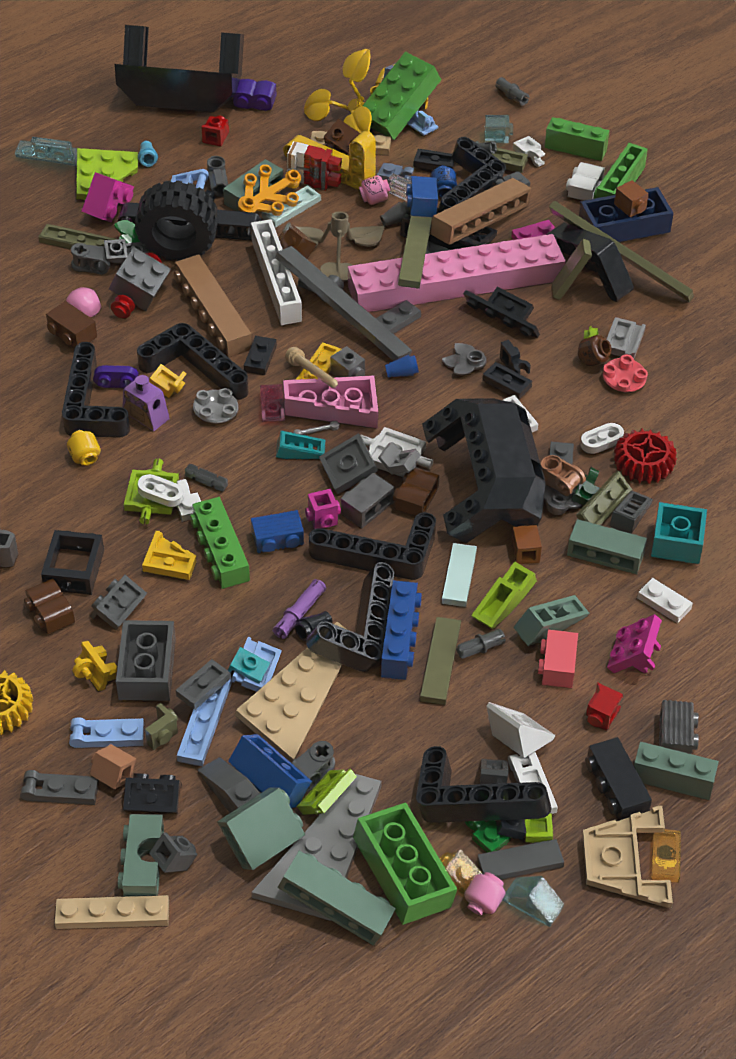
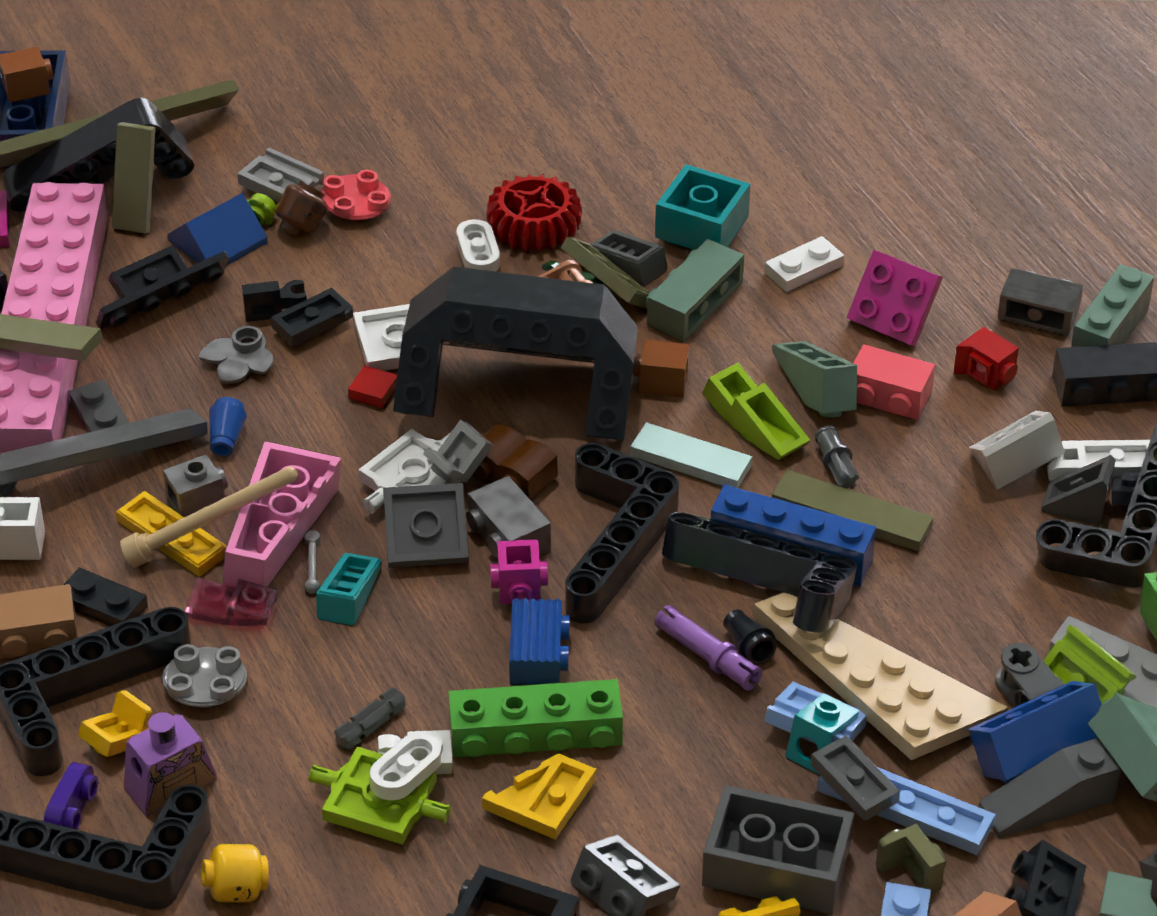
camera: 75 degrees left, 5 degrees down
(562, 326) = (224, 228): none -> blue slope

